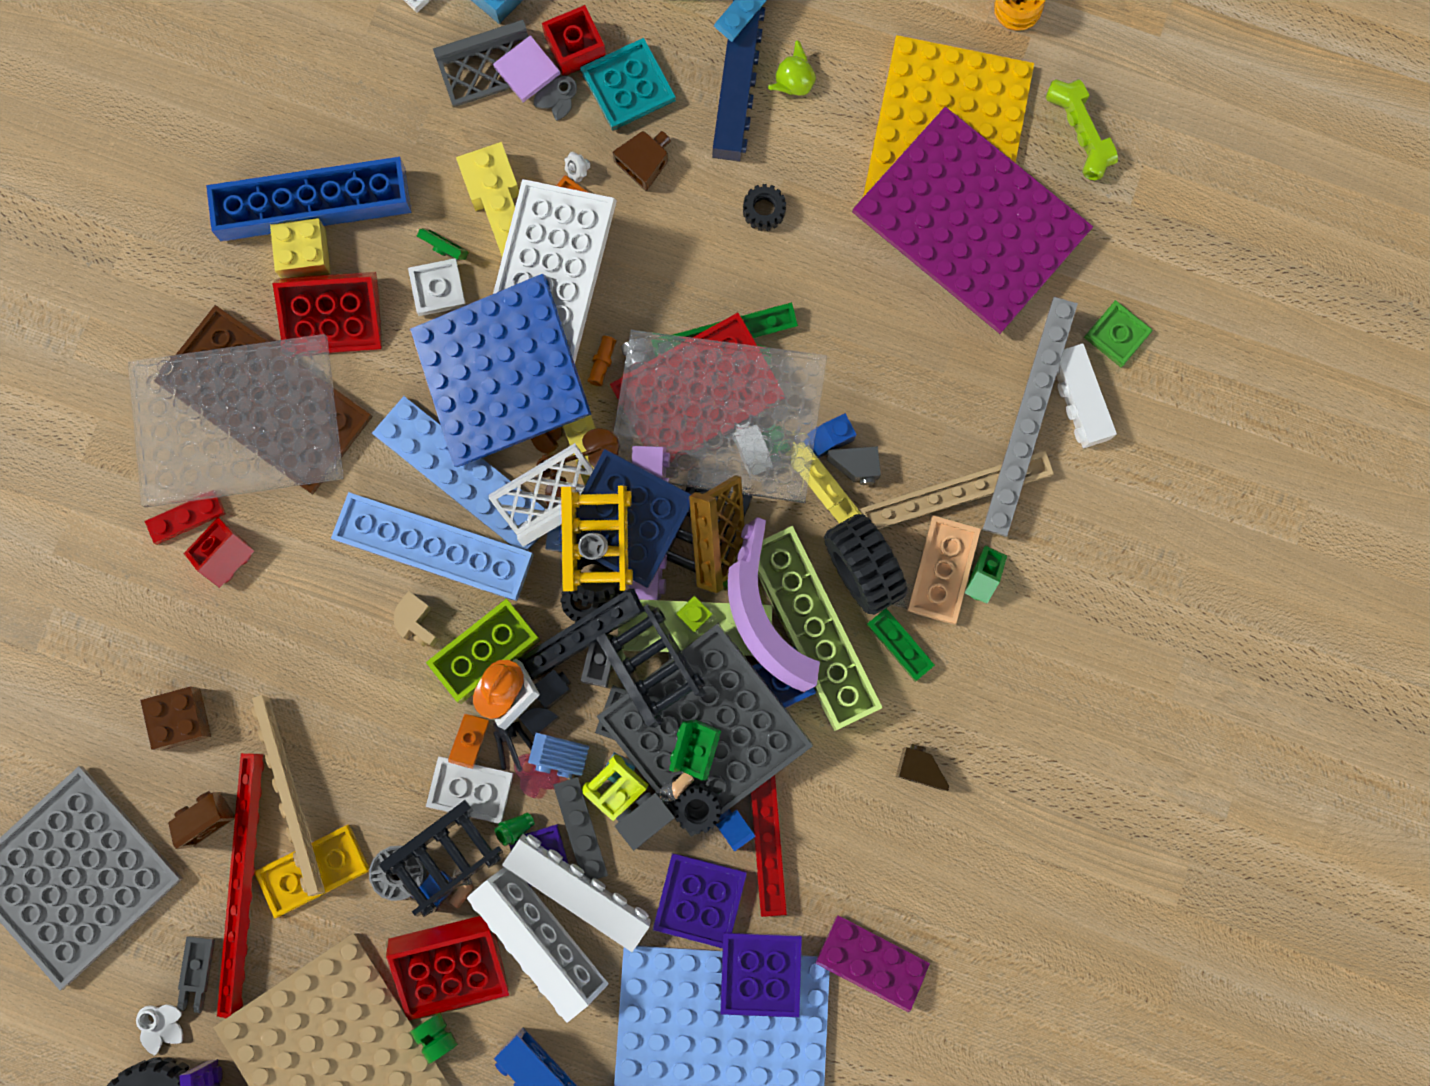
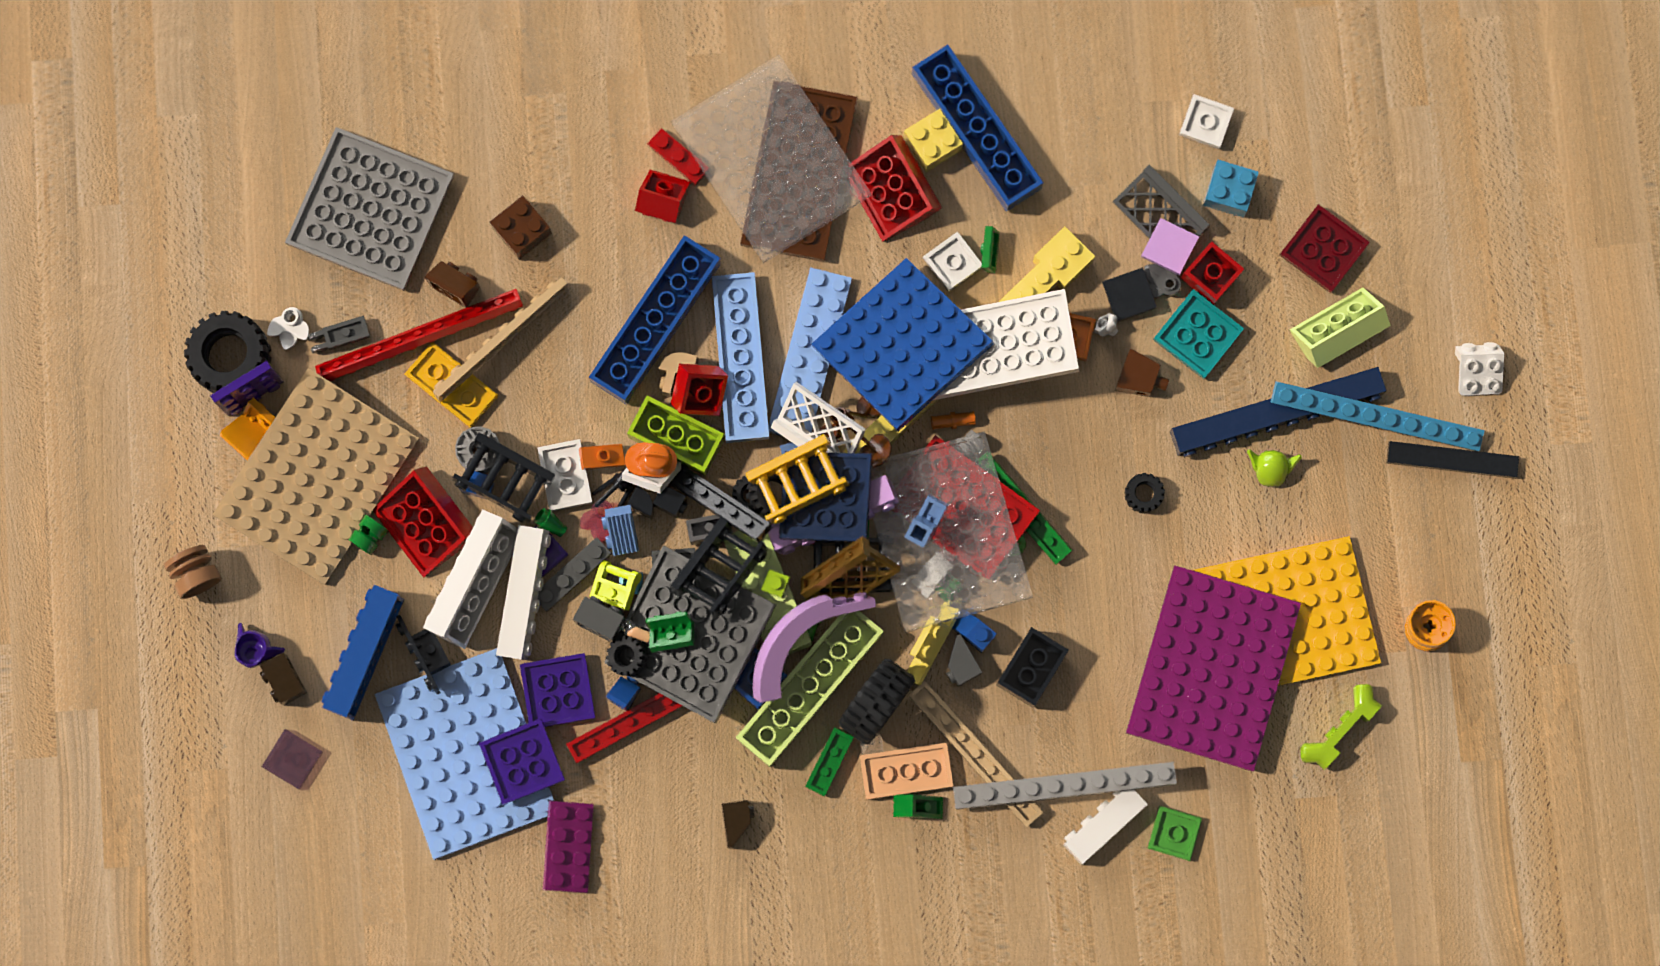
camera: 70 degrees right, 0 degrees up
(348, 618) = (655, 320): none -> blue brick
(446, 603) = (699, 389): none -> red brick
(462, 892) = (485, 505): light nougat arm -> none
(555, 131) = (1129, 294): none -> black tile
(589, 545) = (788, 480): light grey wheel -> none
(594, 1027) = (428, 651): none -> black bracket
(701, 426) = (927, 521): none -> medium blue brick
(894, 394) = (1032, 667): none -> black brick

